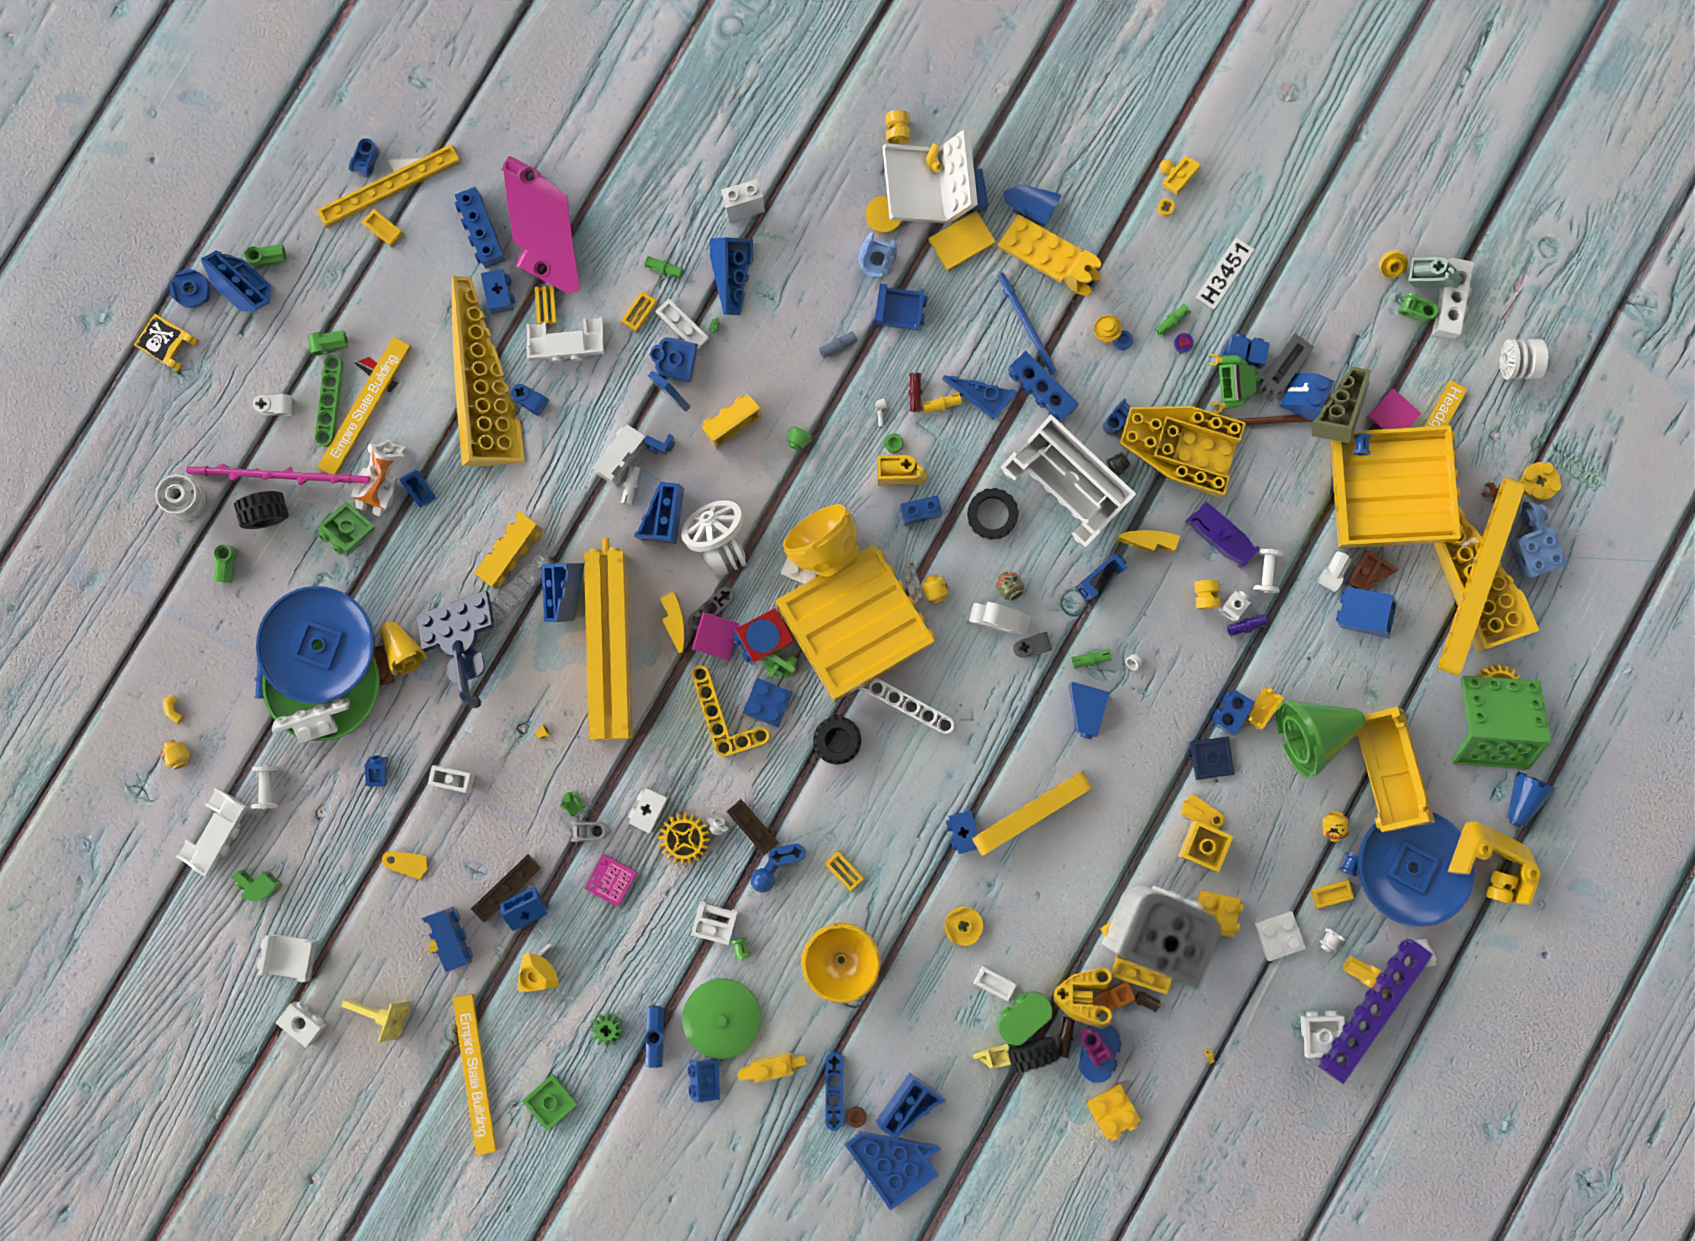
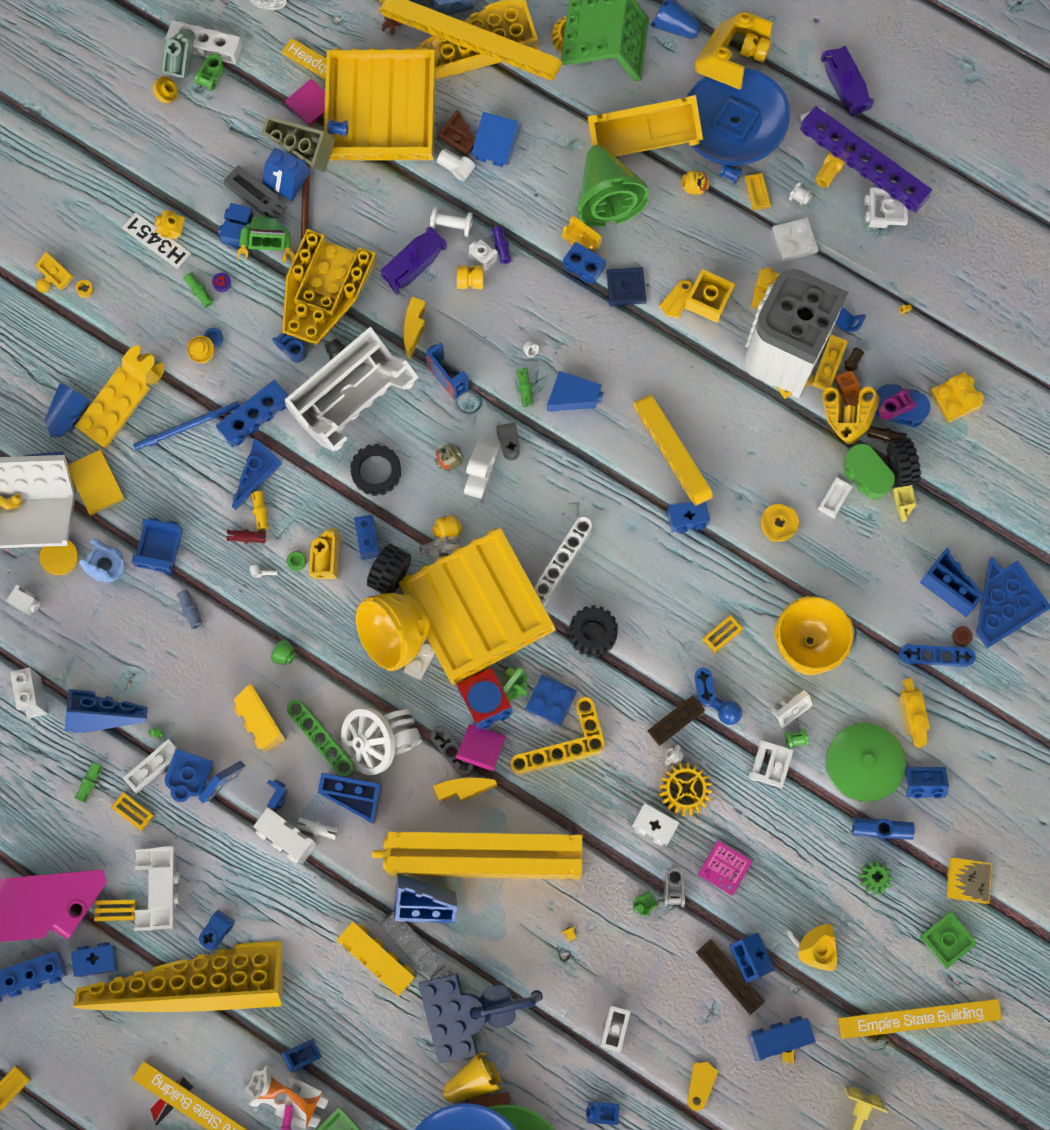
camera: 85 degrees left, 10 degrees down
(608, 1123) = (969, 880): none -> slope
(721, 473) = (312, 735): none -> bright green beam
(774, 948) = (795, 707): none -> white plate
(836, 186) = (23, 600): none -> white brick
(885, 533) = (388, 569): none -> black tyre
(1191, 995) = (847, 320): none -> blue bracket
(1244, 289) = (169, 224): none -> yellow brick
(1472, 989) = (847, 80): none -> dark purple piece

